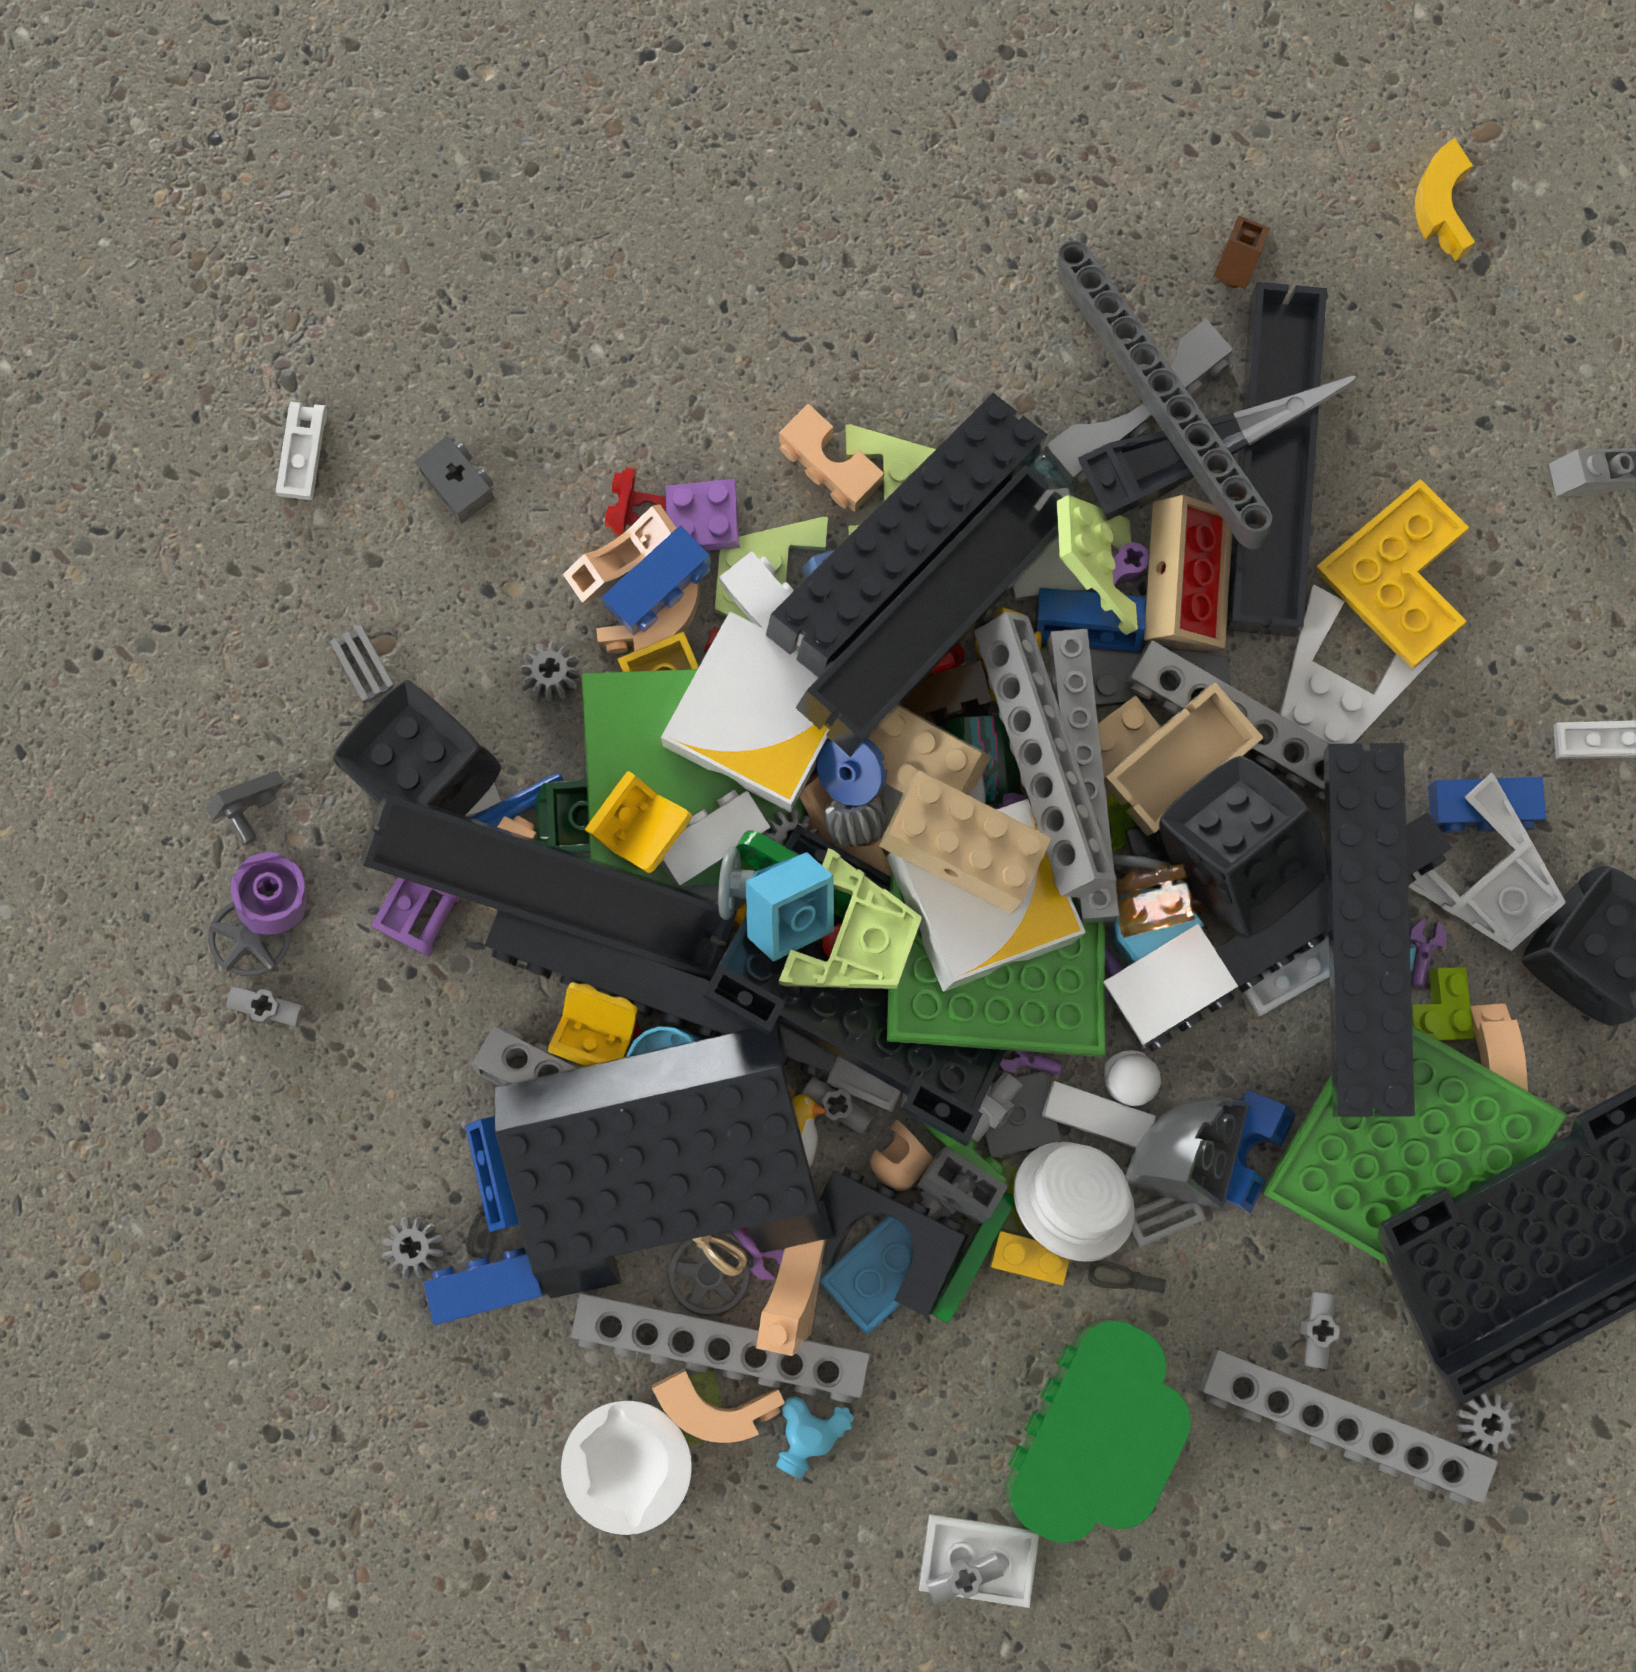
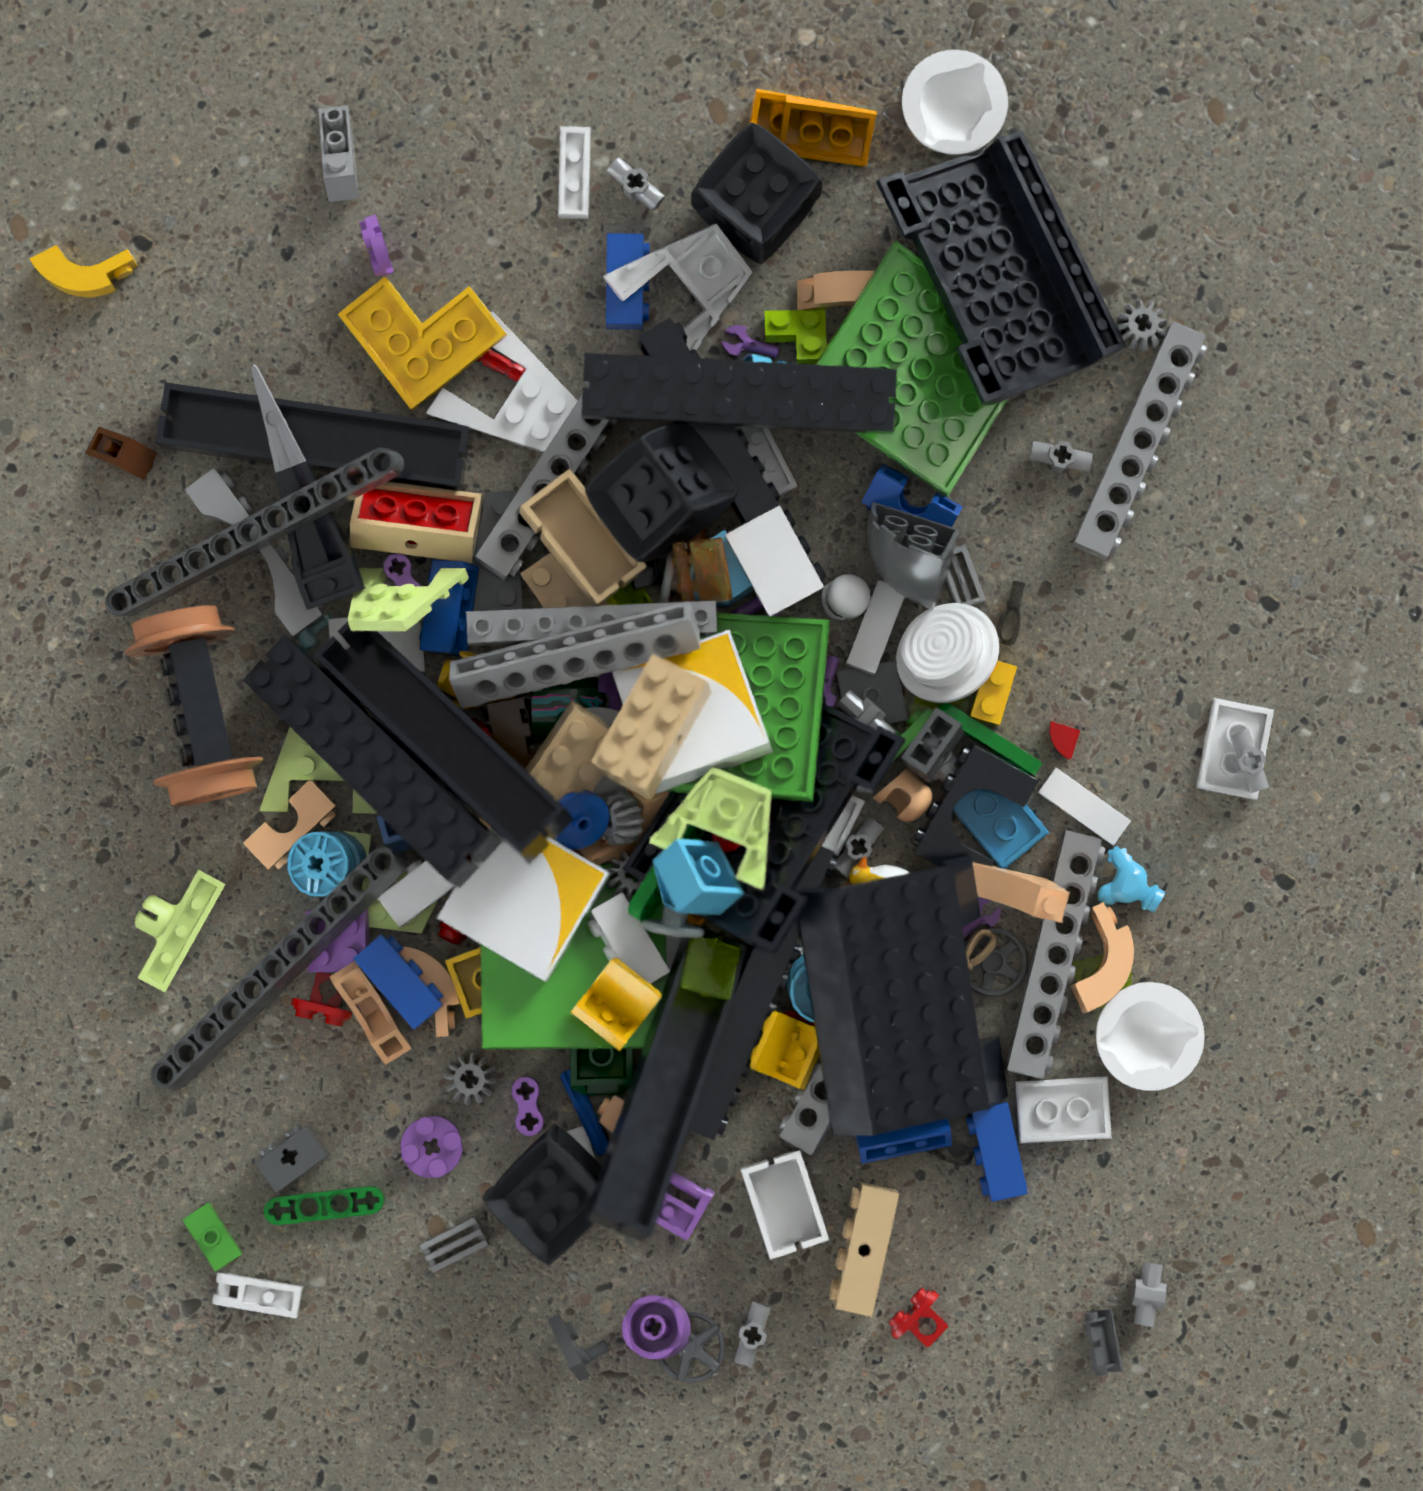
camera: 90 degrees left, 5 degrees up
(272, 1423) = (1102, 1333): none -> dark grey hinge
(300, 1204) = (908, 1321): none -> red bracket
(318, 1478) = (1148, 1294): none -> light grey axle
(342, 1129) = (862, 1270): none -> tan brick
(366, 399) = (212, 1236): none -> bright green plate
(406, 518) = (325, 1209): none -> green beam
(408, 1260) = (952, 1205): light grey gear -> none
(415, 1036) = (784, 1203): none -> white piece
(464, 615) = (437, 1163): none -> medium lavender plate
(522, 737) = (528, 1105): none -> medium lavender axle
(536, 1366) = (1063, 1109): none -> white tile
(602, 389) = (264, 971): none -> dark grey beam
(685, 931) = (710, 967): none -> clear neon green piece
(710, 339) = (175, 927): none -> yellowish green plate
(788, 496) = (340, 856): none -> medium azure wheel
(899, 1377) = (1084, 806): none -> white tile
(979, 1348) = (1063, 739): none -> red tile
(1031, 318) = (192, 690): none -> brick
(1099, 1437) = (1141, 644): green brick -> none
(1376, 667) = (502, 365): none -> red axle
(1513, 513) = (374, 238): none -> medium lavender plate
(1612, 797) = (646, 194): none -> light grey axle

